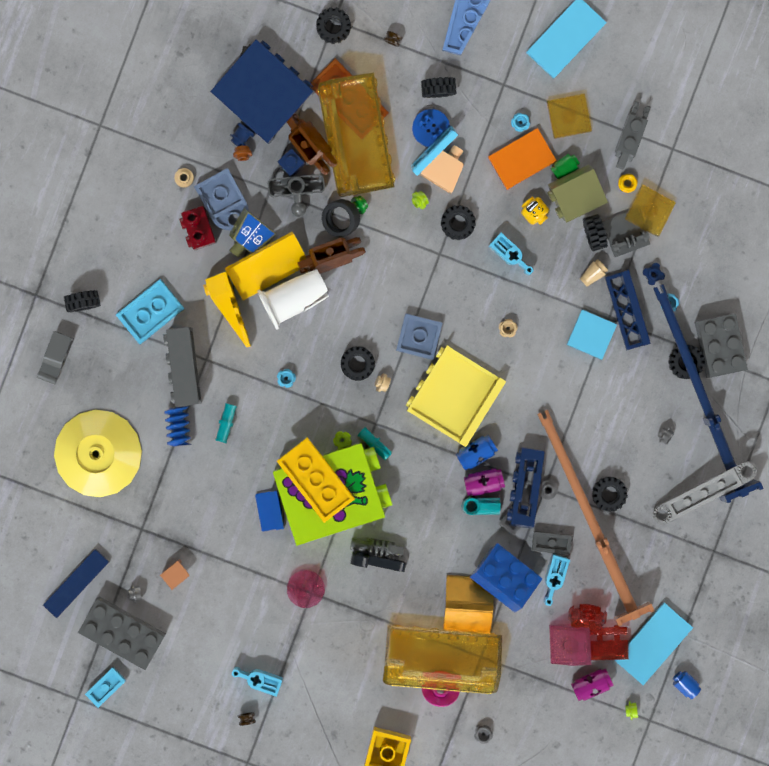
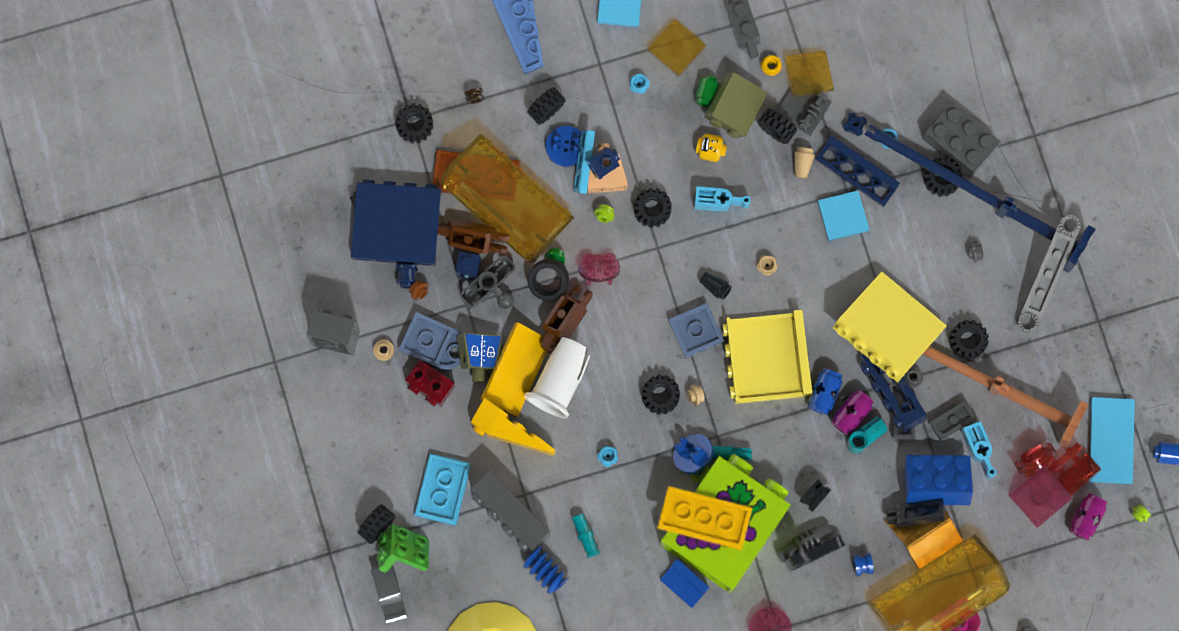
camera: 40 degrees left, 10 degrees down
(88, 333) = (403, 546): none -> bright green bracket
(150, 133) = (333, 332): none -> dark grey brick
(347, 424) = (688, 459): none -> blue plate
(384, 237) = (599, 268): none -> clear pink plate
(406, 595) = (863, 564): none -> blue wheel
(410, 521) = (815, 495): none -> black wheel
(442, 157) = (596, 165): none -> dark blue brick
(459, 316) = (716, 286): none -> black cone
(472, 590) = (917, 513): none -> black hinge
(522, 159) = (665, 113): orange tile -> none
(558, 443) = (889, 326): none -> light yellow panel

